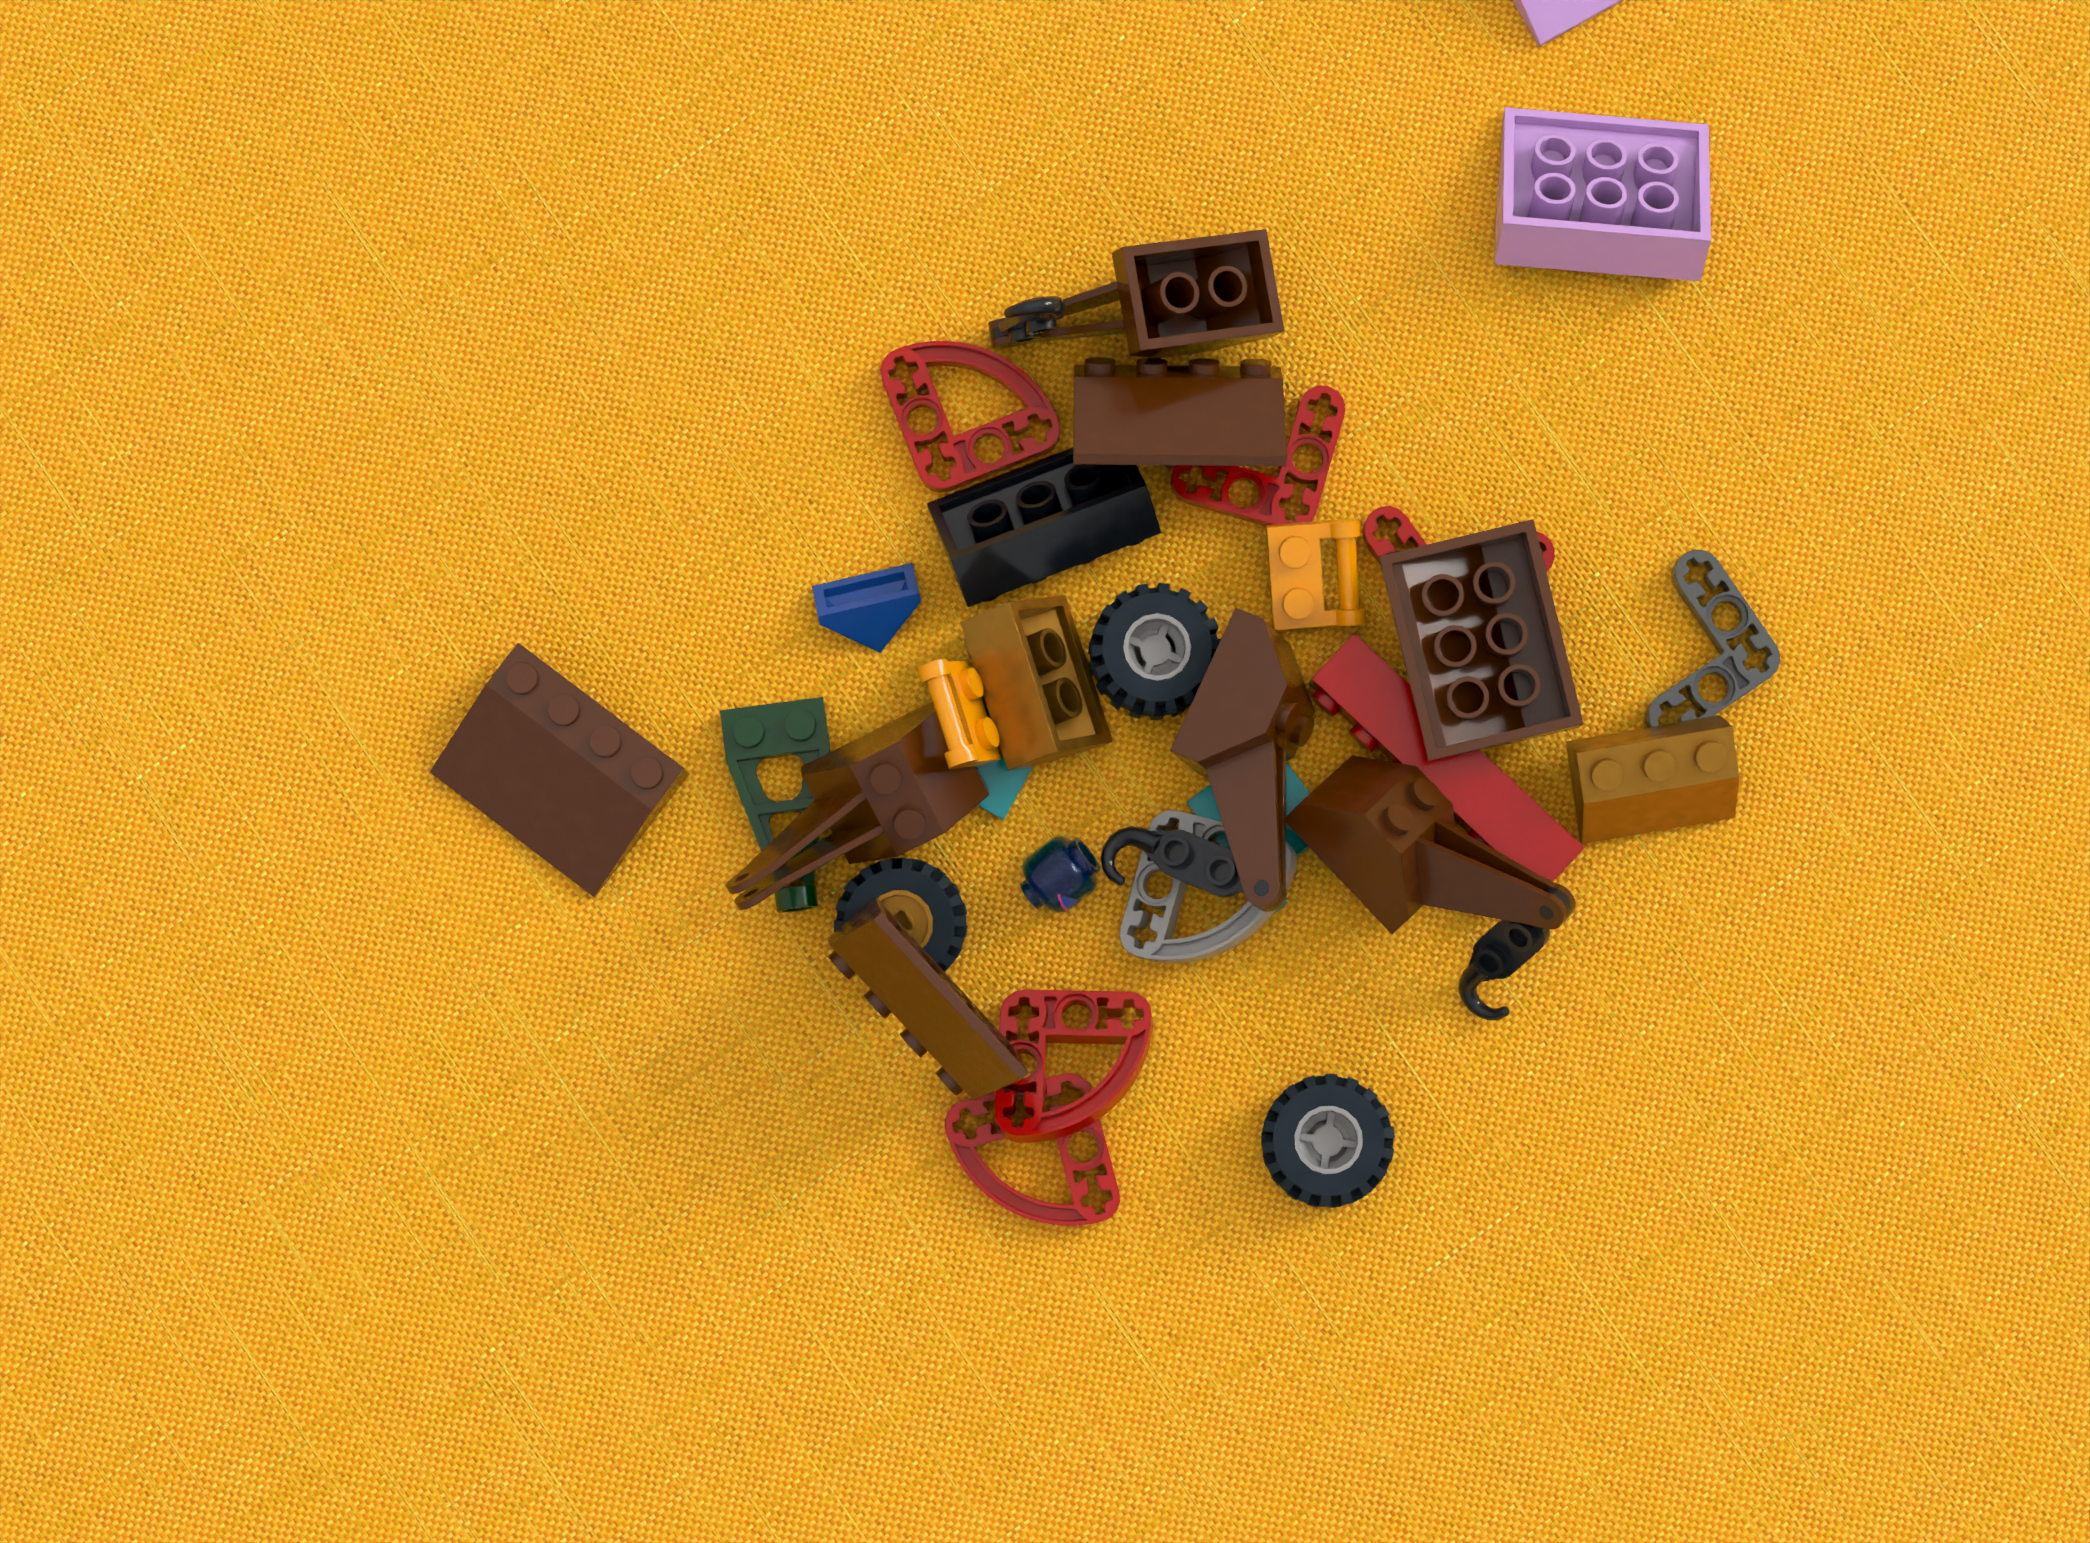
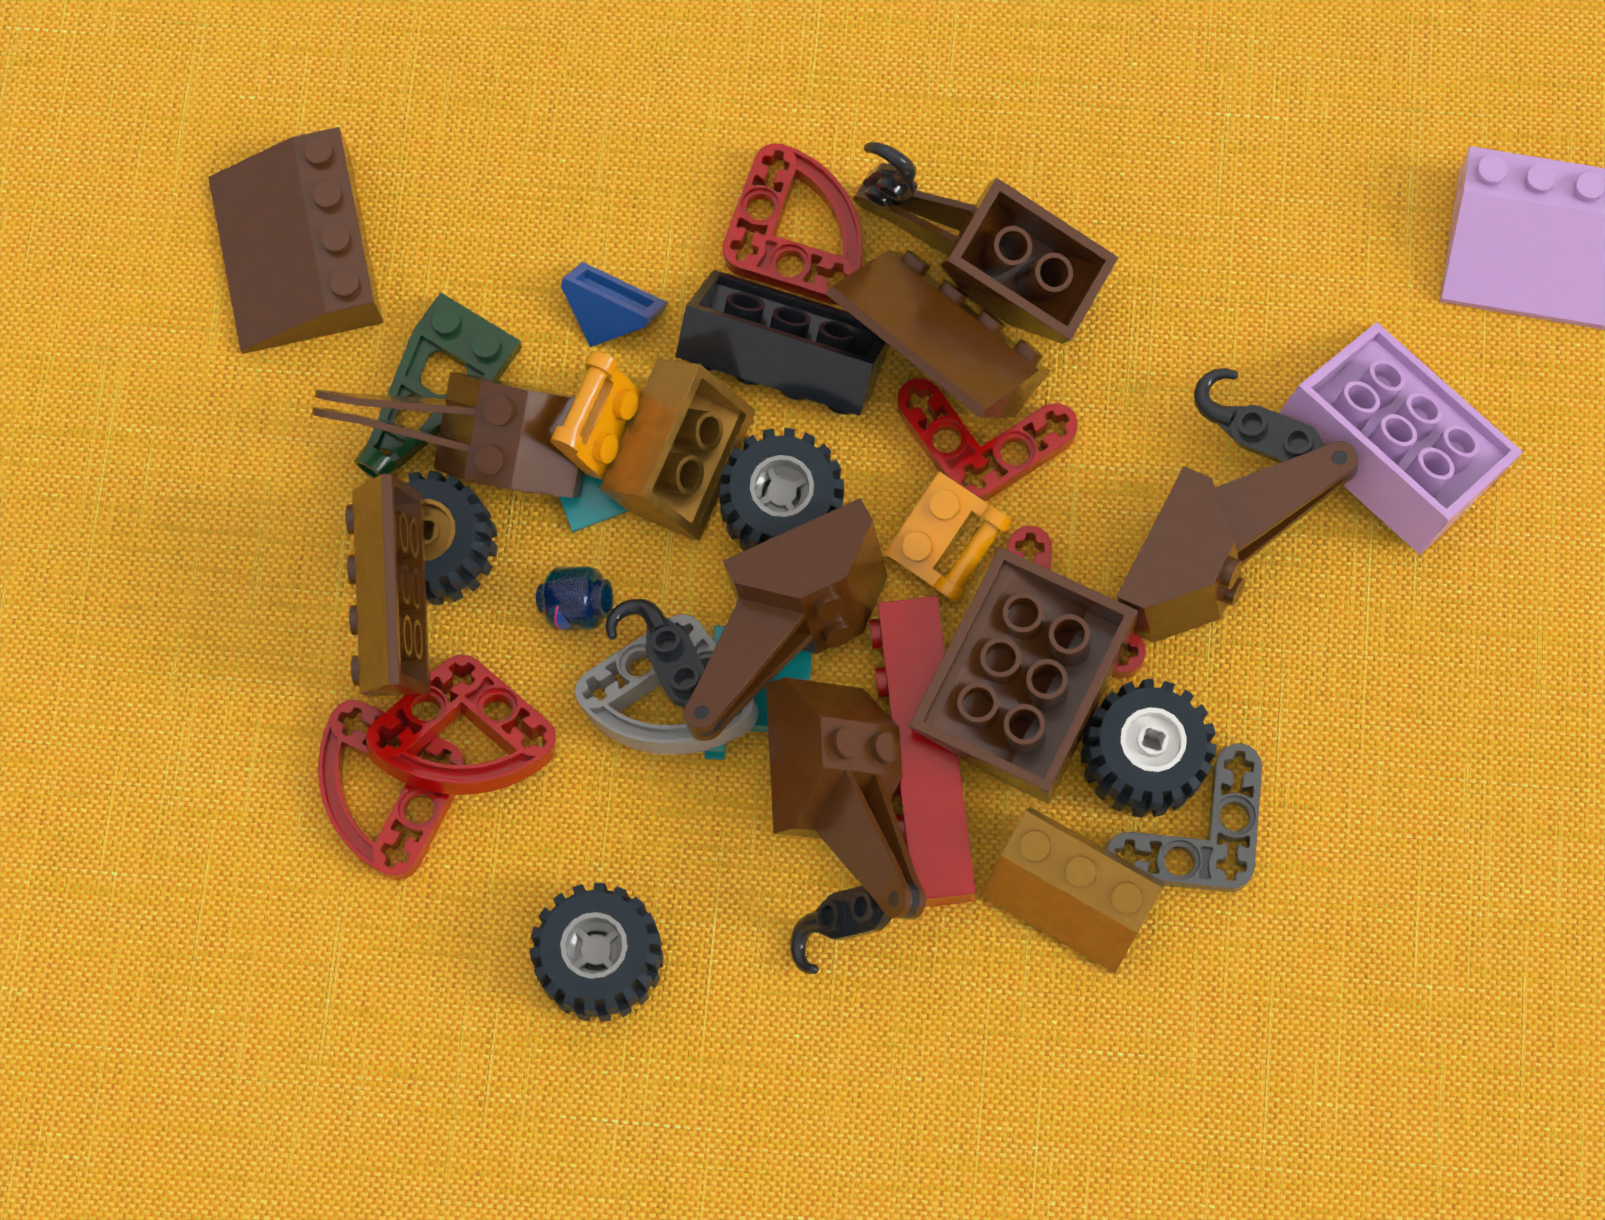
camera: 45 degrees right, 10 degrees down
(1530, 396) = (1208, 532): none -> reddish brown slope
(1620, 618) = (1148, 748): none -> black wheel

